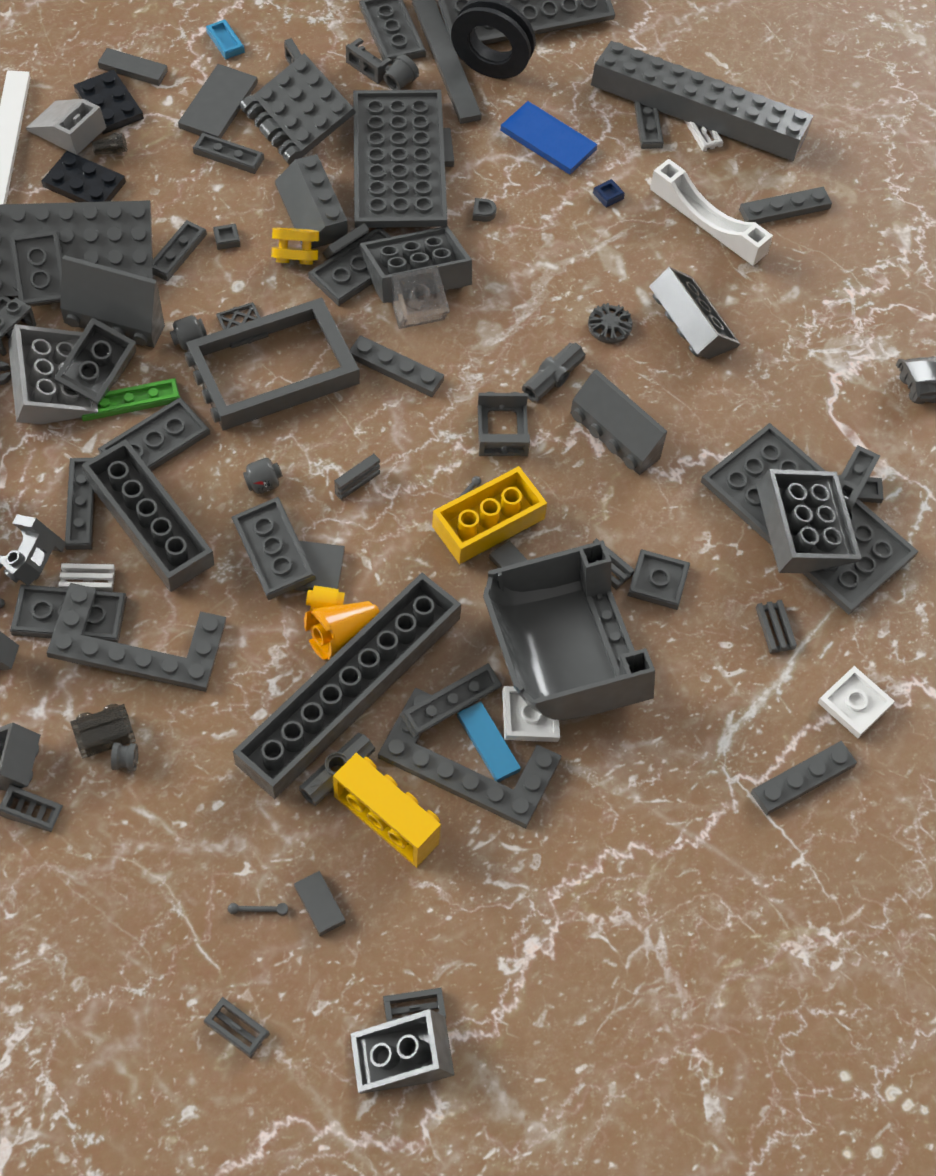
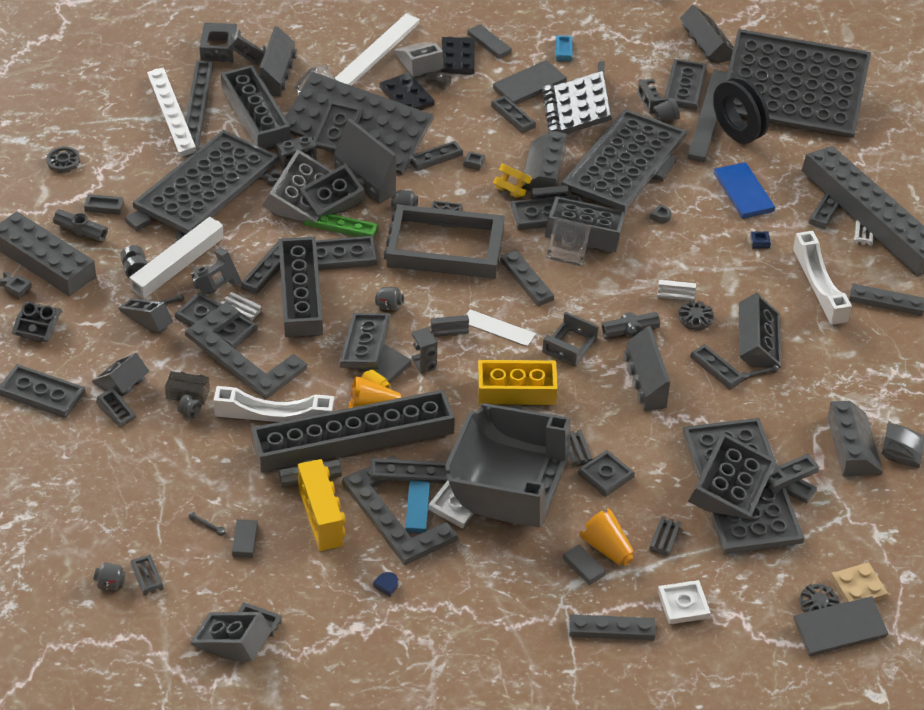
camera: 35 degrees right, 15 degrees down
(188, 720) = (234, 403): none -> white arch
(196, 1062) = (109, 577): none -> dark grey head
(359, 528) = (427, 344): none -> dark grey window
(409, 448) = (500, 328): none -> white sticker
(527, 866) = (386, 582): none -> dark blue tile
(571, 302) = (676, 290): none -> white tile
(677, 378) = (717, 366): none -> dark grey tile
(711, 375) = (774, 368): none -> dark grey hinge
(719, 713) = (584, 564): none -> dark grey tile
(729, 667) = (608, 538): none -> light orange cone
(875, 401) = (853, 439): none -> dark grey slope

